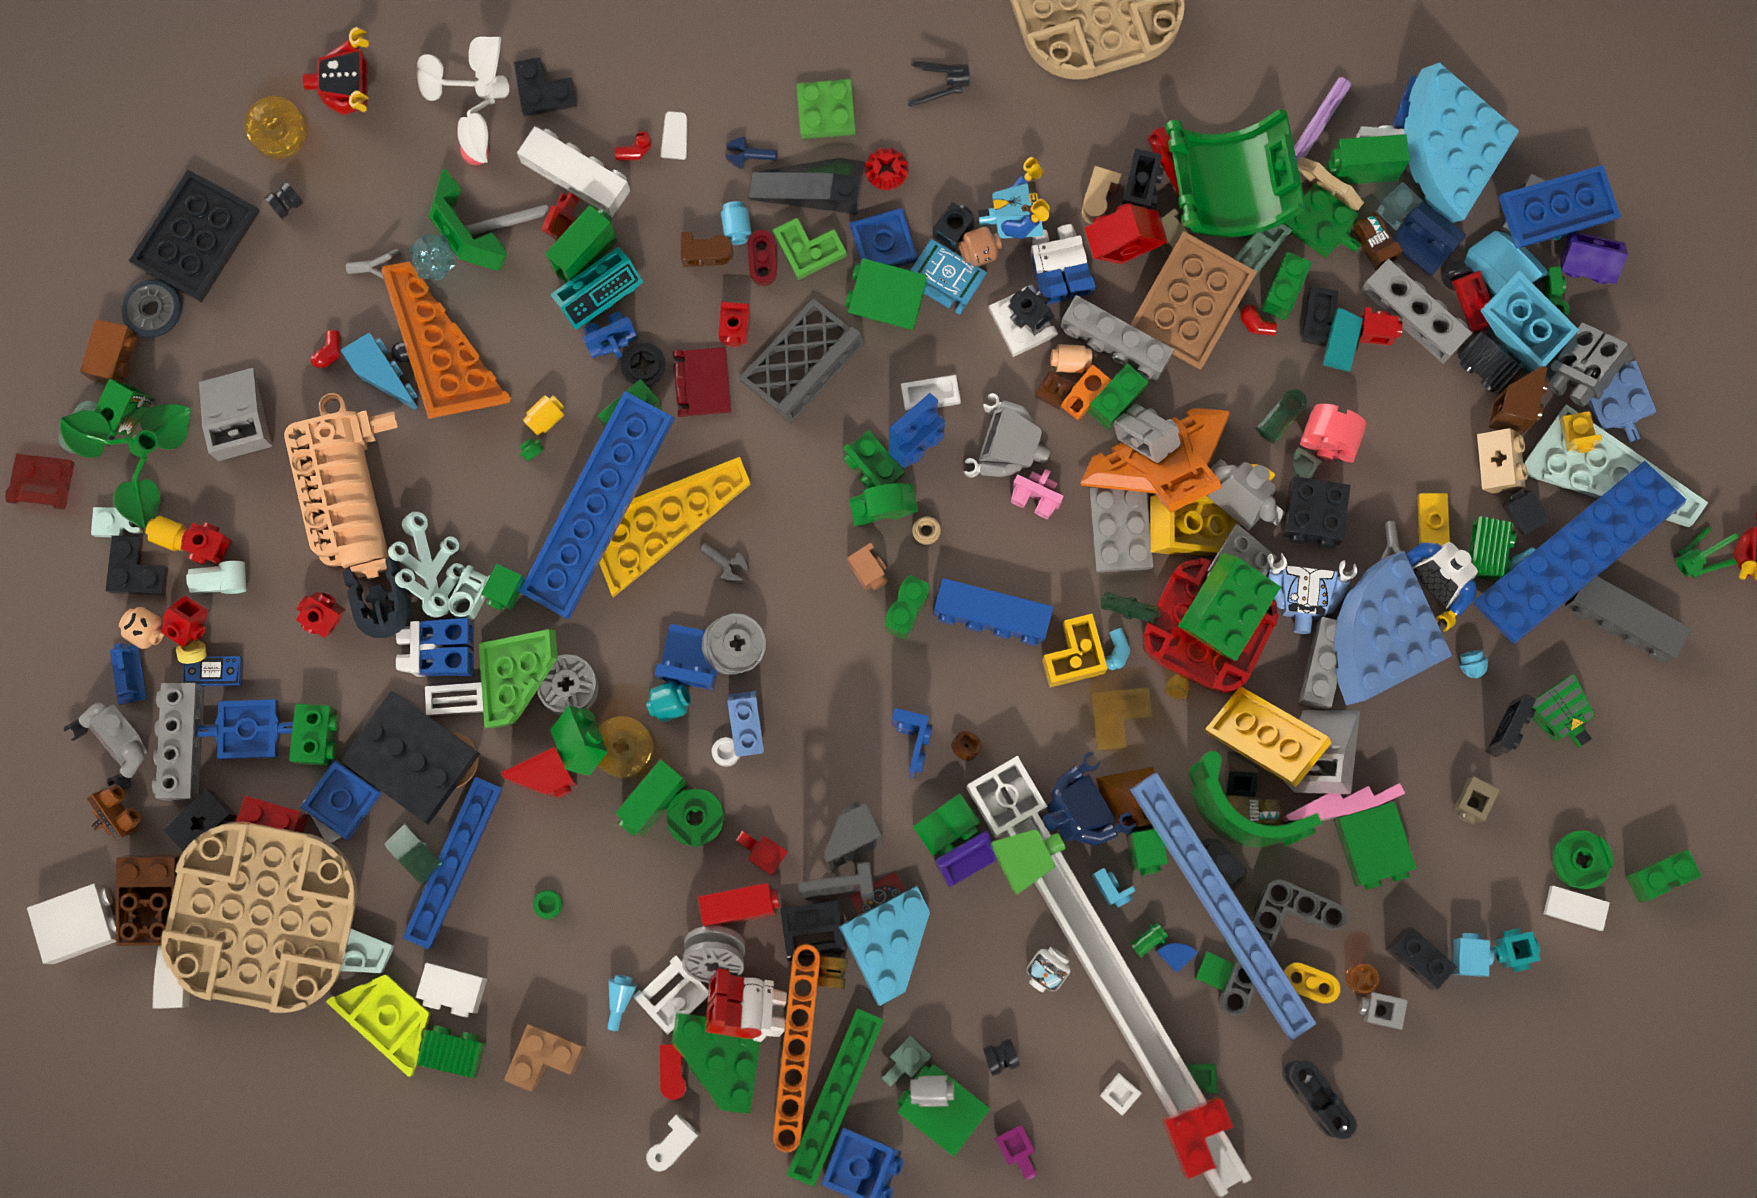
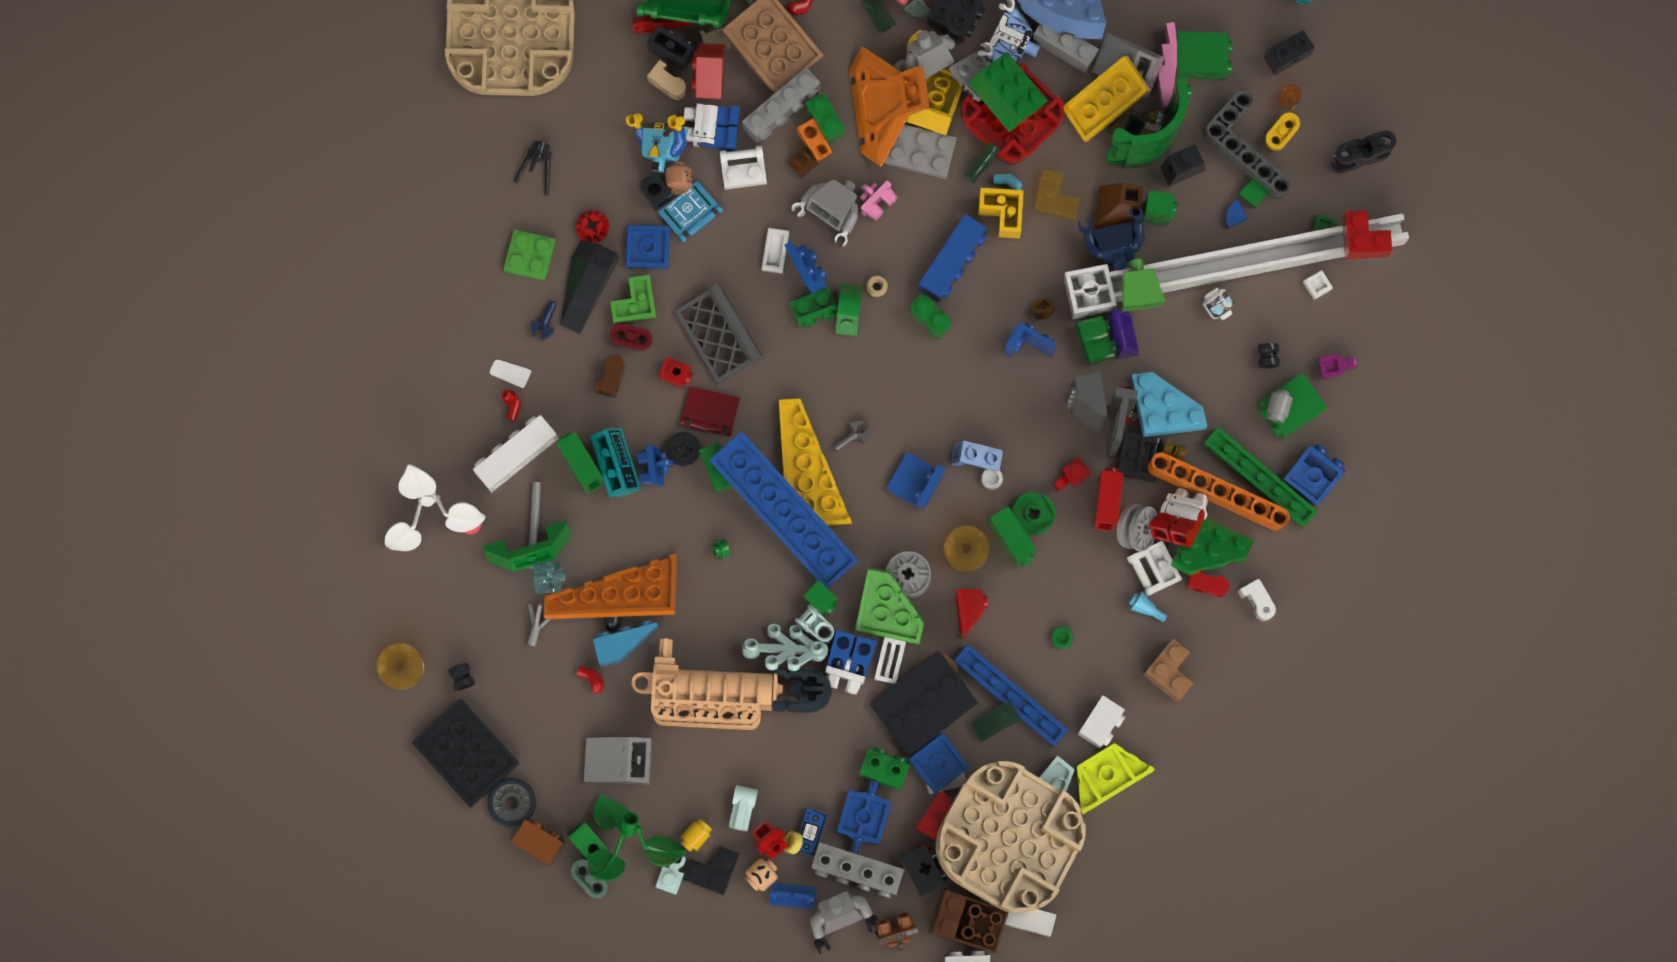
camera: 75 degrees left, 0 degrees up
(40, 472) = (613, 920): clear red plate -> none
(205, 543) = (713, 800): red brick -> none
(319, 613) = (796, 738): red brick -> none
(342, 76) = (379, 604): torso -> none
(450, 1052) = (1147, 735): green brick -> none
(542, 96) = (444, 463): black plate -> none
(544, 414) = (698, 532): yellow brick -> none
(560, 217) = (549, 474): red plate -> none
(579, 740) = (954, 574): green piece -> none
(668, 701) = (943, 506): teal head -> none
(736, 222) = (598, 347): medium azure brick -> none
(736, 628) = (917, 446): light grey wheel -> none
(868, 568) = (892, 335): nougat brick -> none
(886, 294) = (692, 255): green brick -> none
(908, 1059) = (1249, 420): sand green plate -> none
(1030, 310) = (742, 149): black brick -> none
(1071, 358) = (784, 142): light nougat brick -> none
(1107, 886) = (1173, 244): medium azure bracket -> none
(1147, 432) = (860, 106): light grey brick -> none
(1149, 939) = (1219, 229): green pin -> none
(1177, 687) = (1048, 150): clear yellow hinge -> none
(1223, 906) = (1214, 168): medium blue plate -> none
(1393, 1010) = (1317, 83): light grey brick -> none
(1472, 955) = (1297, 18): medium azure brick -> none

